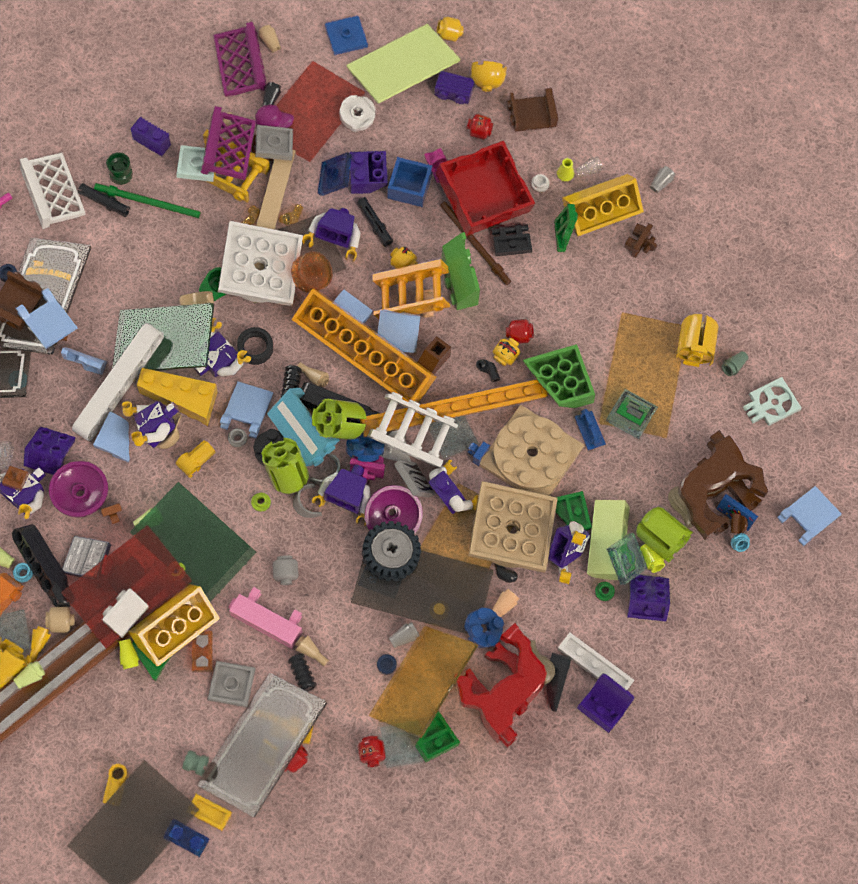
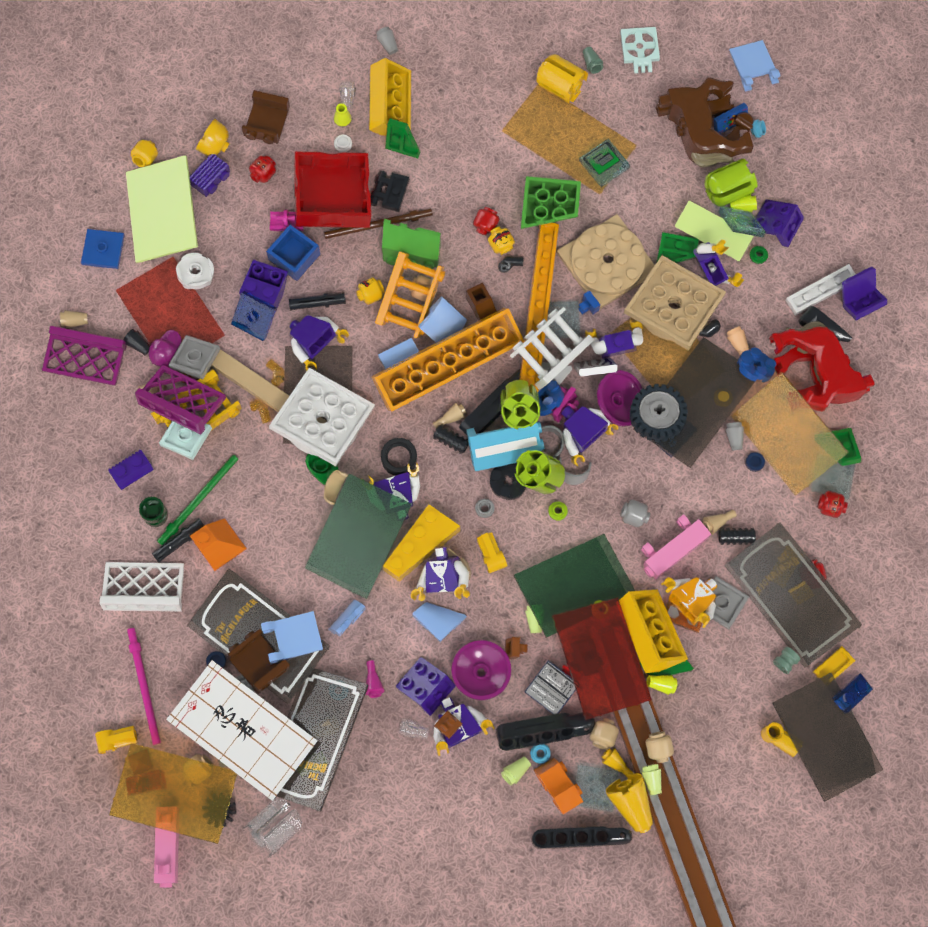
camera: 65 degrees left, 5 degrees up
(32, 407) = (375, 686): none -> dark pink cone
(61, 669) = (659, 747): none -> tan head
(113, 230) = (218, 543): none -> orange slope
(118, 382) = (386, 594): white beam -> none
(124, 612) = (630, 667): white slope -> none
(219, 650) = (693, 598): none -> torso
(248, 406) = (456, 487): light blue flag -> none
(311, 271) = (350, 374): clear orange wheel -> none
(589, 429) = (604, 204): blue hinge -> none
(643, 233) = (443, 81): reddish brown hips -> none

